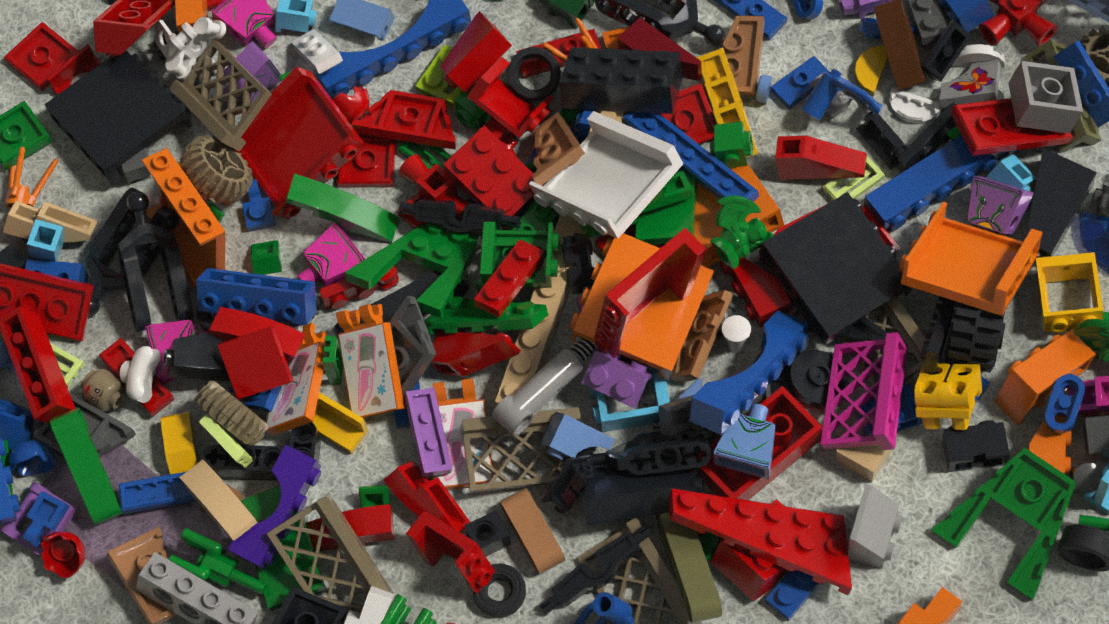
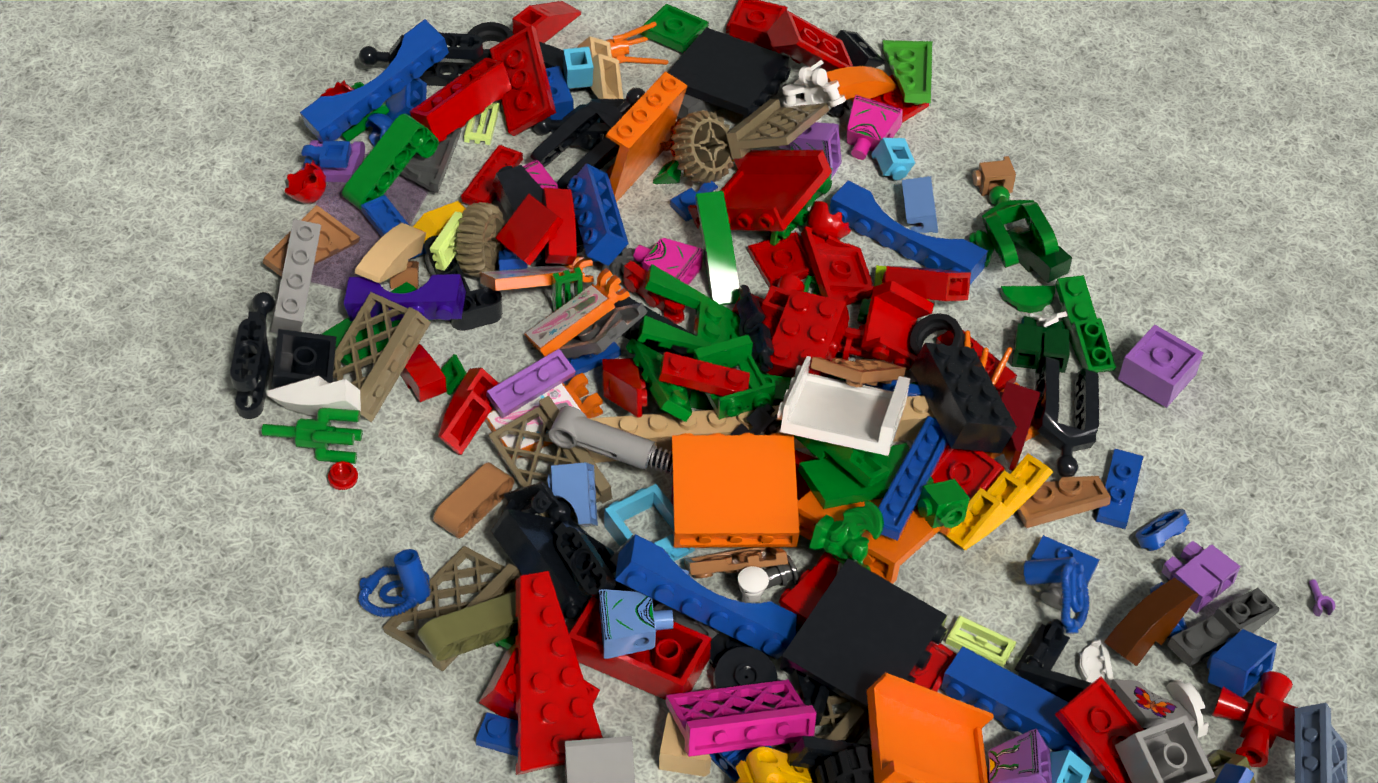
camera: 55 degrees right, 15 degrees down
(102, 390) = (467, 157): dark tan head -> none
(139, 373) = (485, 169): white piece -> none
(215, 564) = (335, 277): green plant -> none
(266, 258) = (649, 224): green slope -> none
(316, 51) = (862, 179): white plate -> none
(339, 424) = (513, 324): yellow panel -> none
(435, 538) = (415, 446): red panel -> none
(493, 524) = (452, 465): black brick -> none
(512, 602) = (409, 512): black tyre -> none
(610, 559) = (467, 563): black piece -> none
(617, 377) = (651, 500): medium lavender bracket -> none
(670, 267) = (722, 450): red panel -> none
(764, 88) = (1035, 527): medium blue tile -> none
(817, 159) = (981, 593): red slope -> none
(870, 68) = (1110, 613): yellow tile -> none
(945, 51) = (1171, 664): black slope -> none

